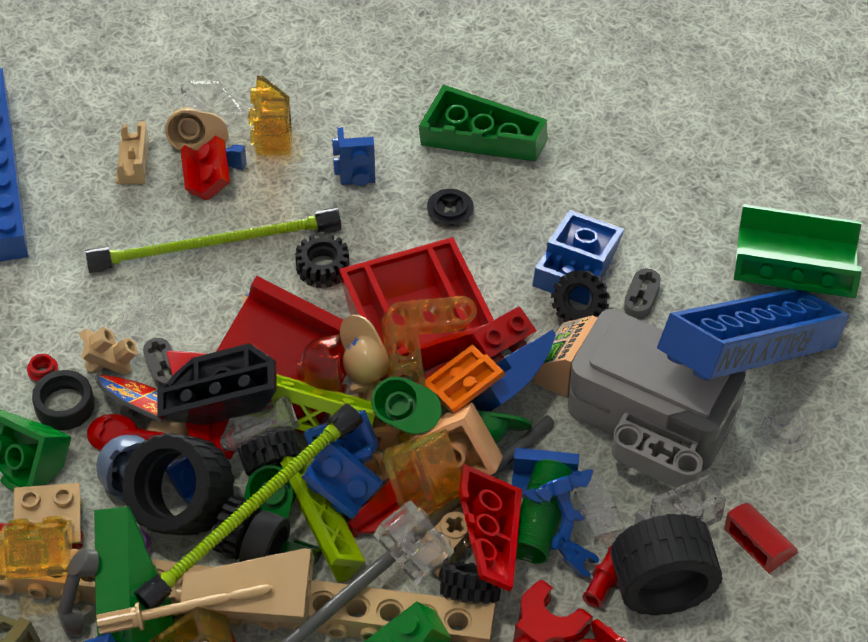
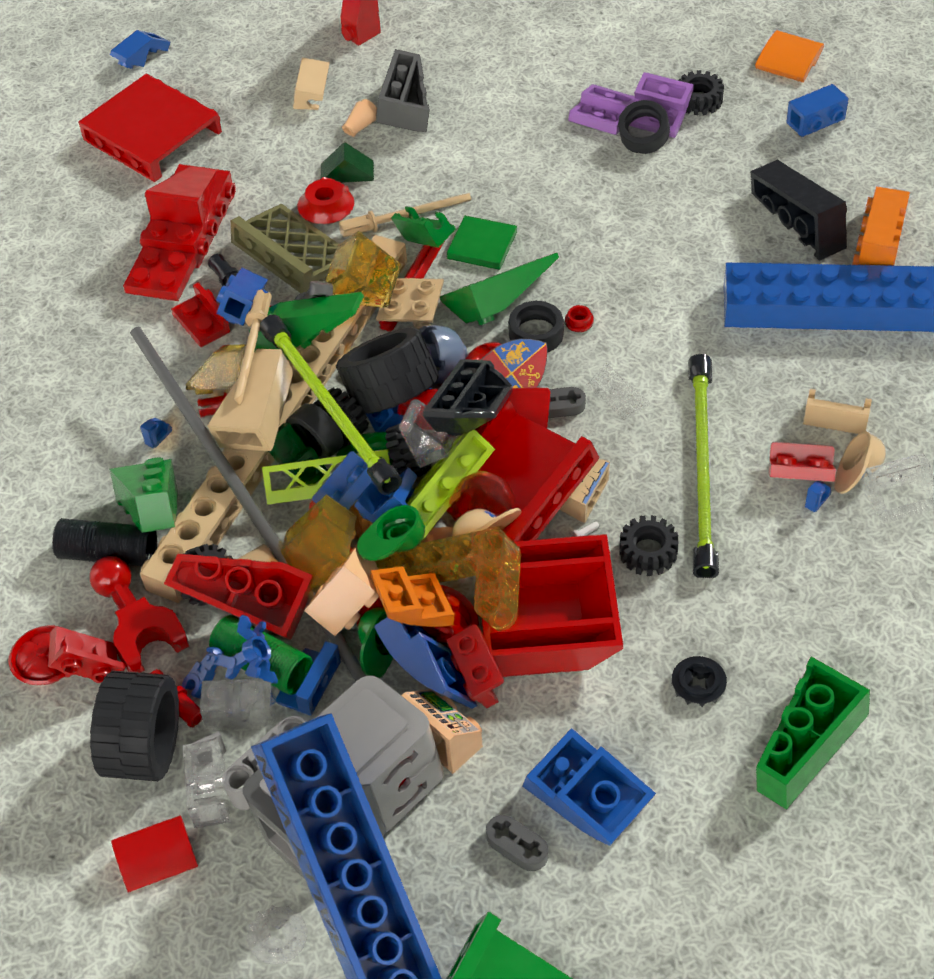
camera: 110 degrees right, 0 degrees up
(104, 352) = (573, 354): tan hips -> none
(270, 119) = (857, 522): clear yellow slope -> none
(355, 159) = (779, 581): blue bracket -> none
(398, 537) = (249, 523): clear brick -> none
(571, 281) = (513, 760): black tyre -> none

